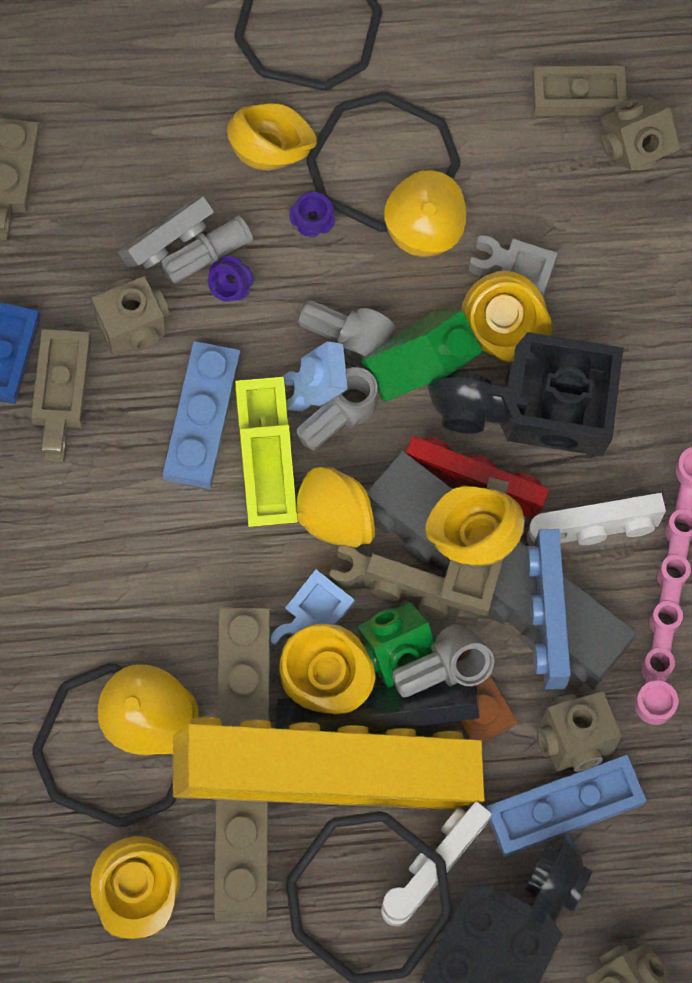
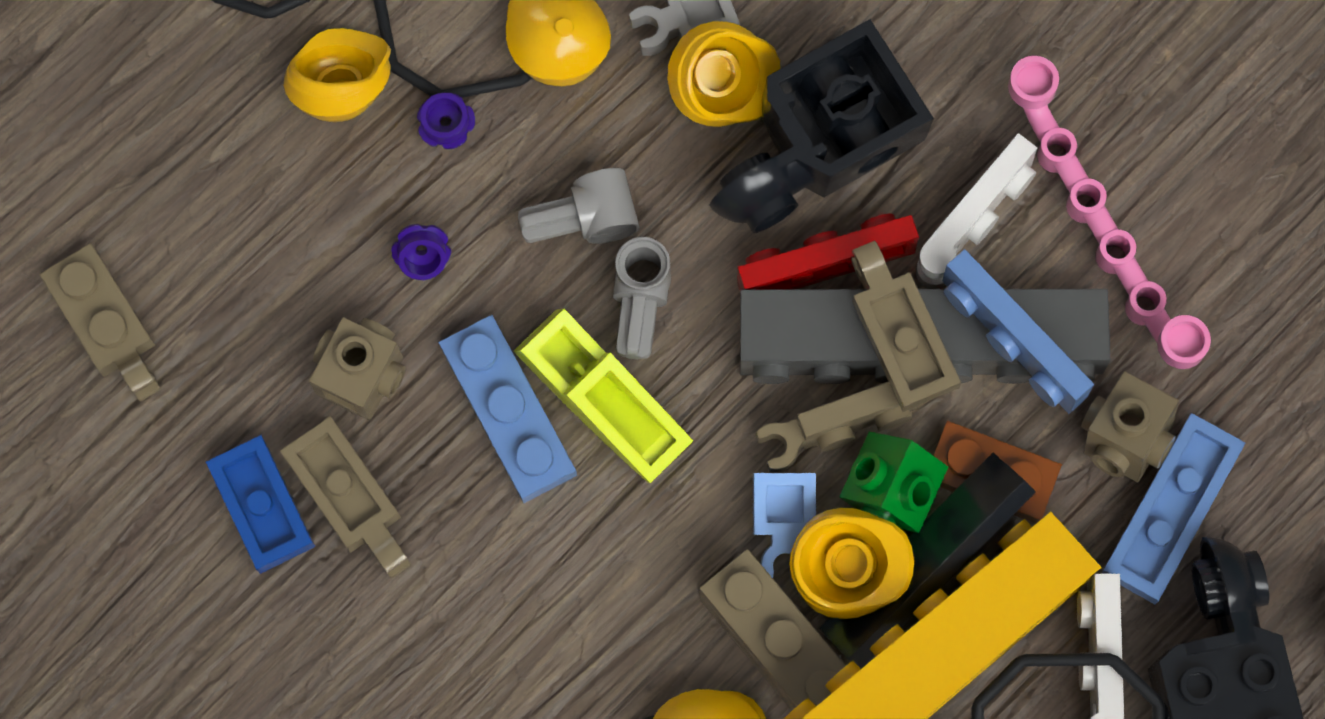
camera: 30 degrees left, 5 degrees up
(182, 223) = (323, 235): light grey plate -> none
(206, 249) = (371, 239): light grey axle -> none
(319, 379) = (599, 281): light blue plate -> none
(335, 508) = (724, 398): yellow hat -> none
(422, 353) = (677, 175): green slope -> none
(443, 663) = (964, 452): light grey axle -> none
(475, 525) = (886, 310): yellow hat -> none

